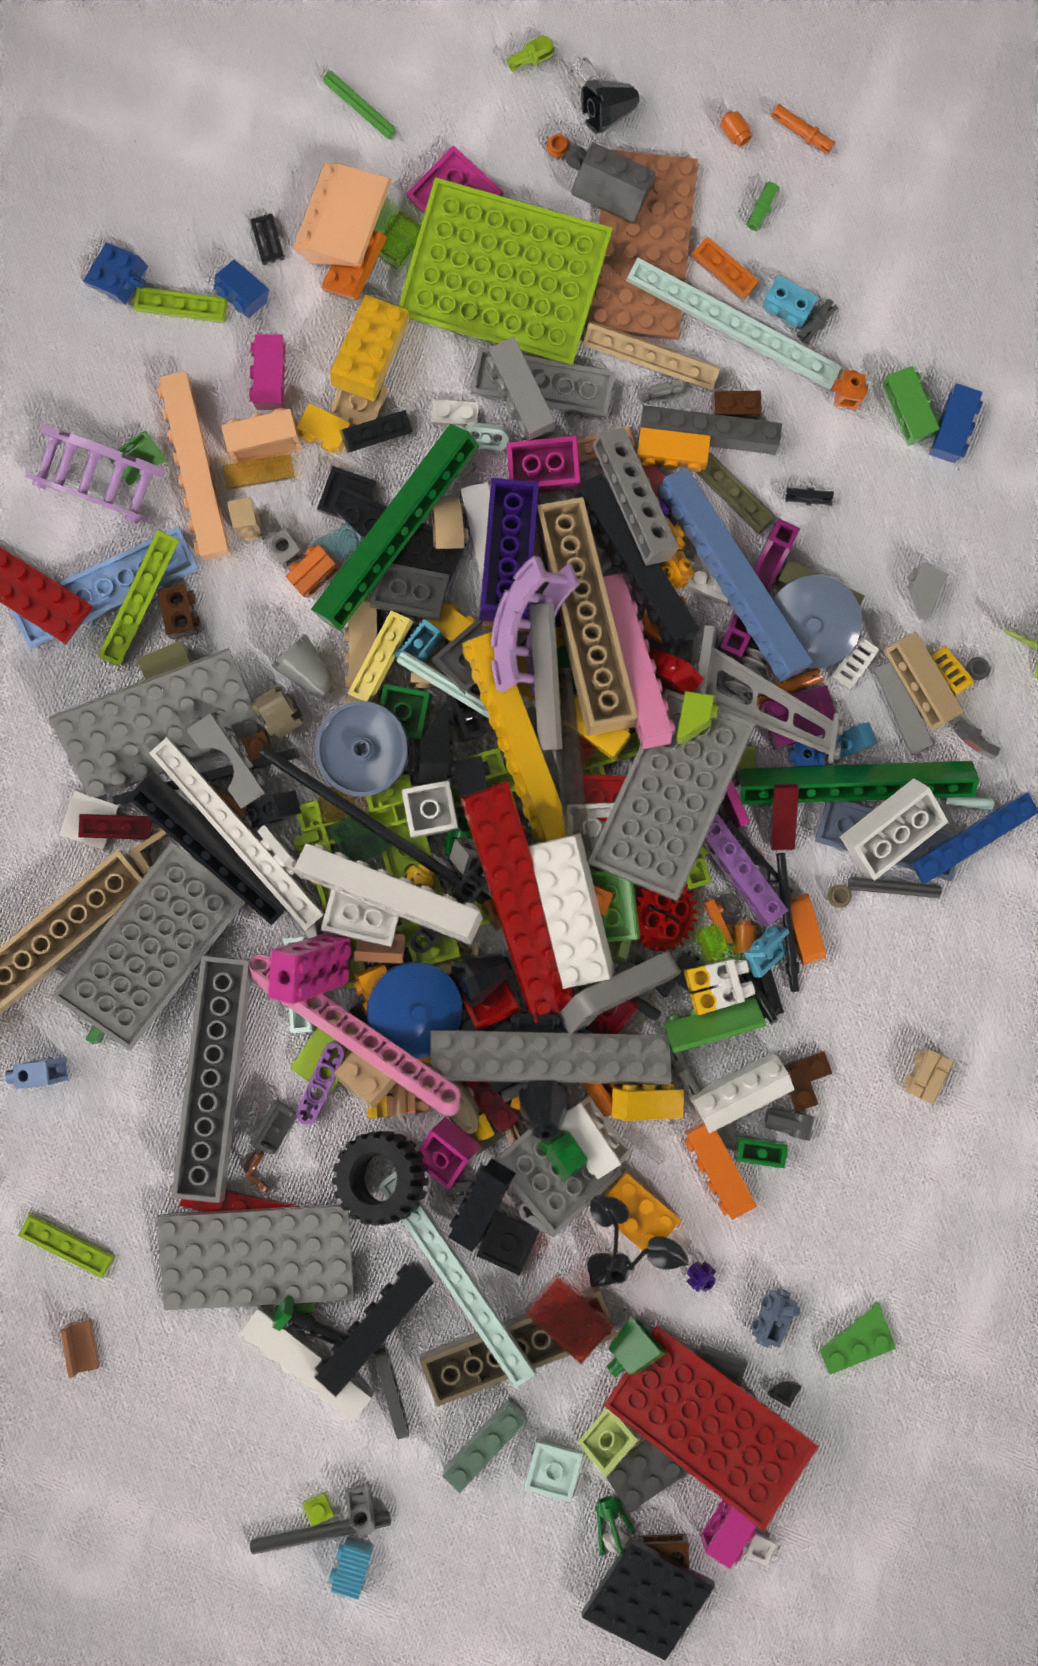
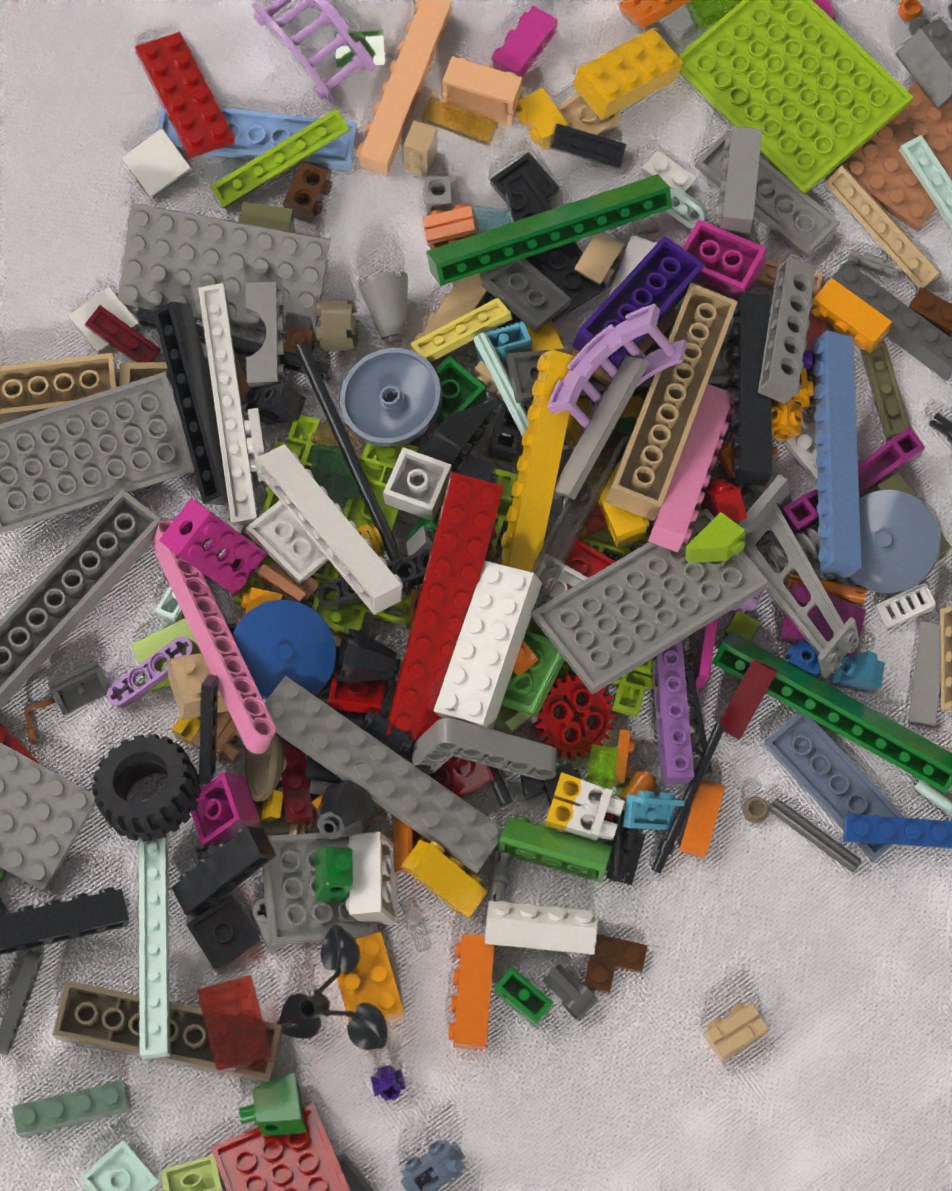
camera: 30 degrees right, 15 degrees down
(41, 662) = (156, 163): none -> white tile
(399, 1108) = (208, 728): none -> black tile
(894, 829) = (845, 768): white brick -> none

